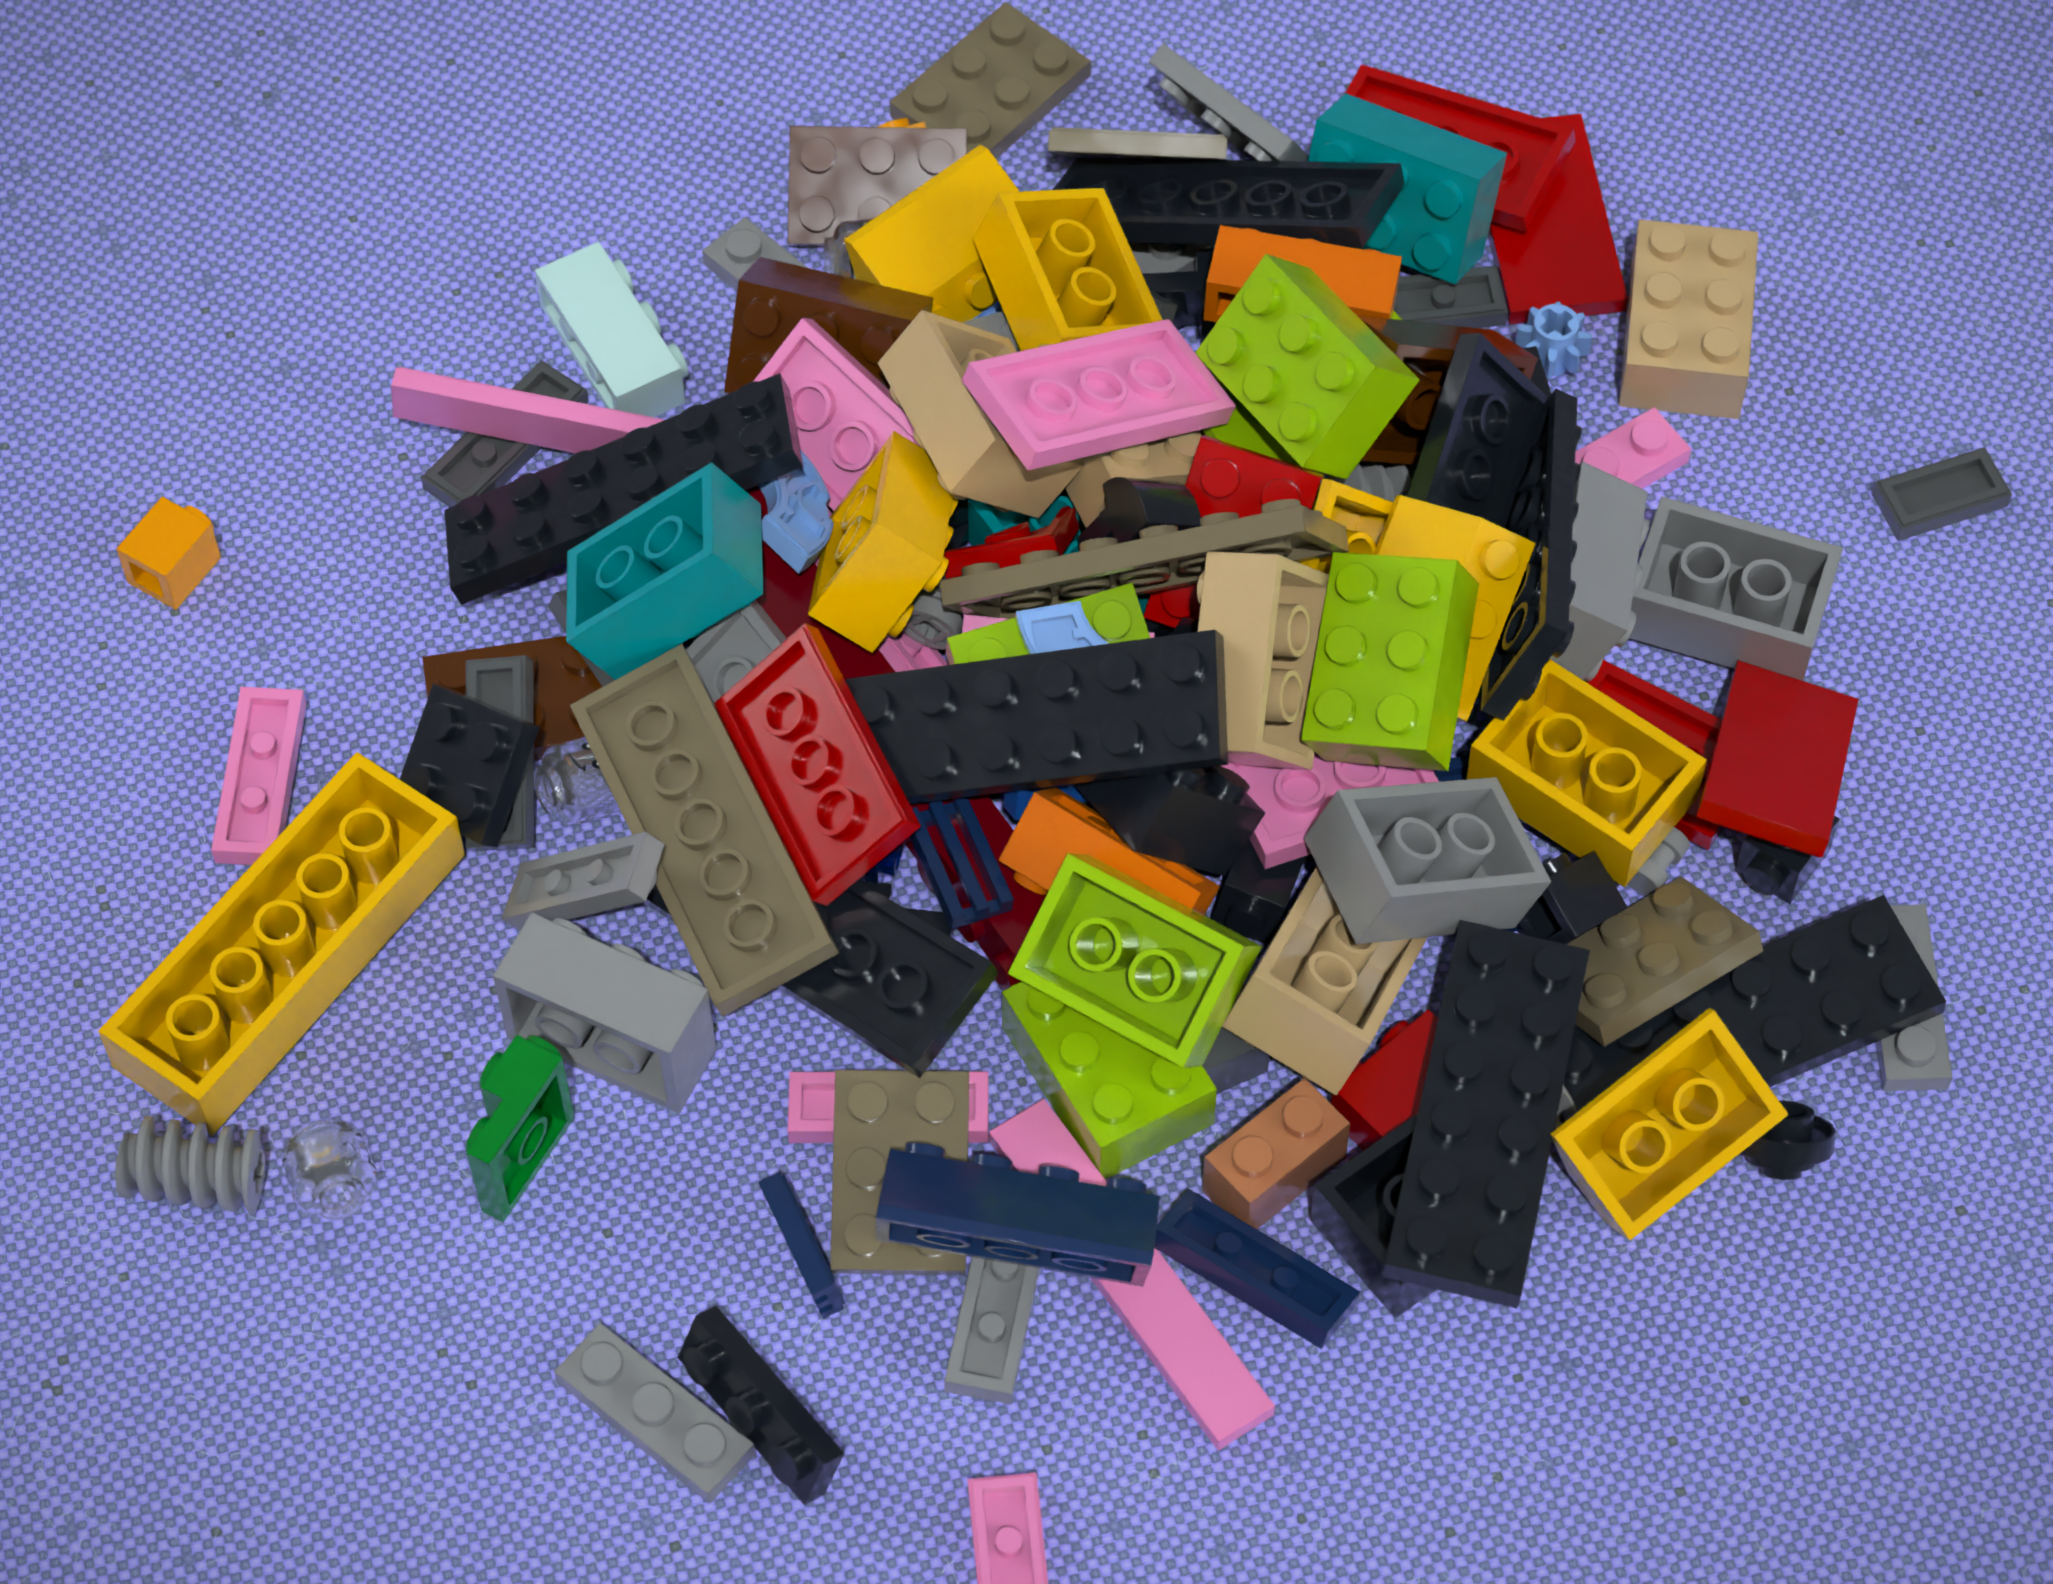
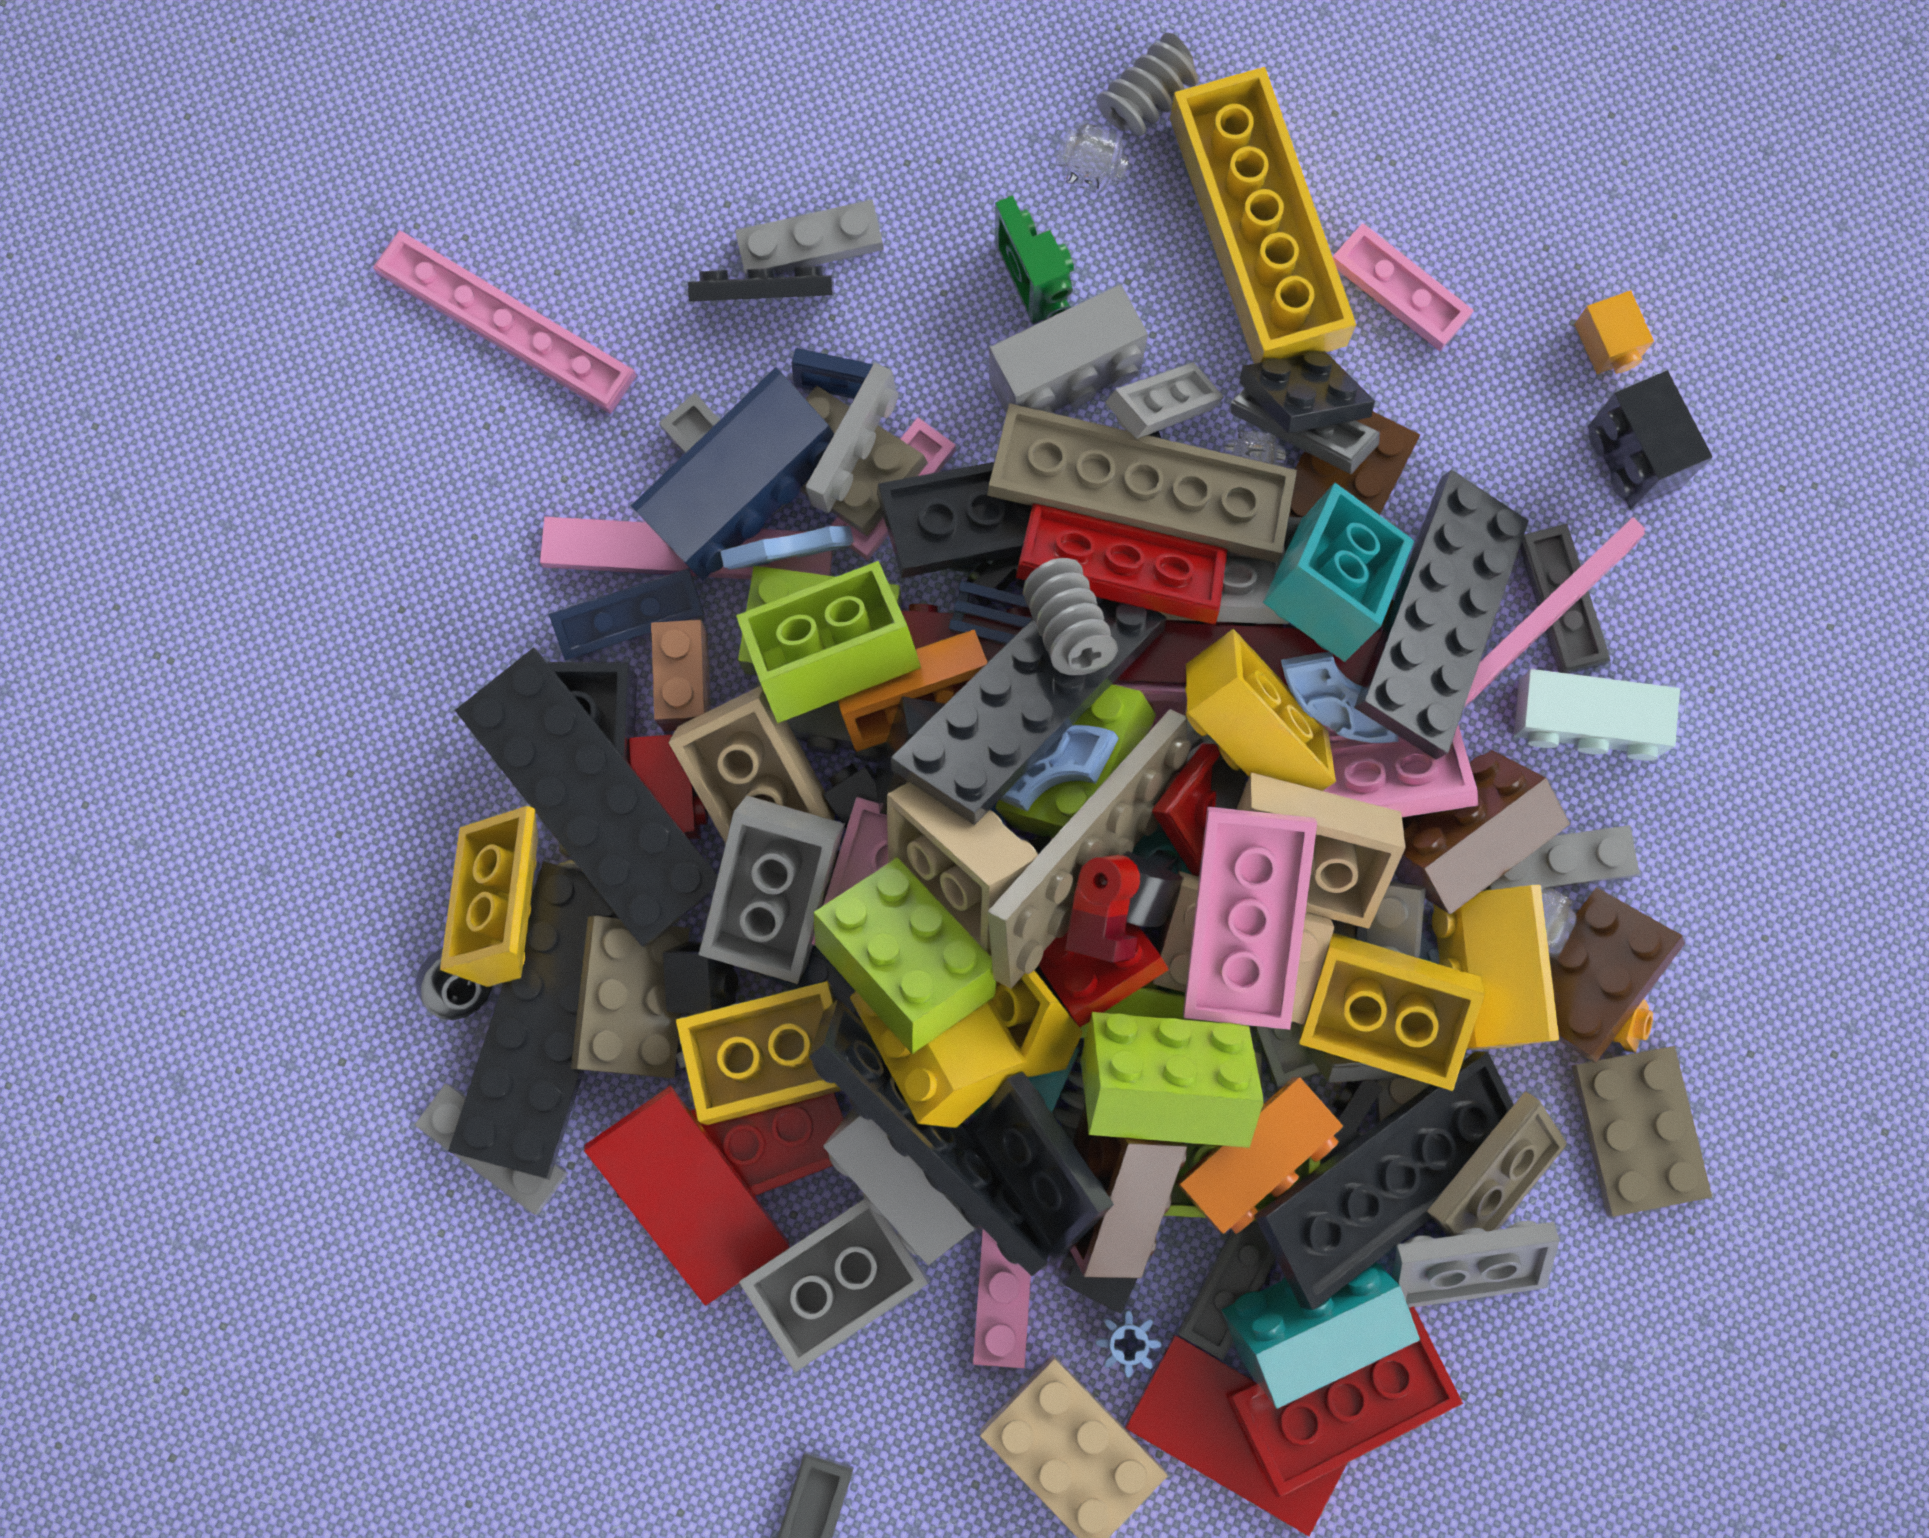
camera: 130 degrees right, 20 degrees up
(283, 438) = (1648, 440): none -> black brick
(823, 1144) = (852, 439): none -> light grey plate
(935, 715) = (1069, 617): none -> light grey piece
(1049, 1132) = (798, 545): none -> light blue tile
(1182, 497) = (1102, 909): none -> leg

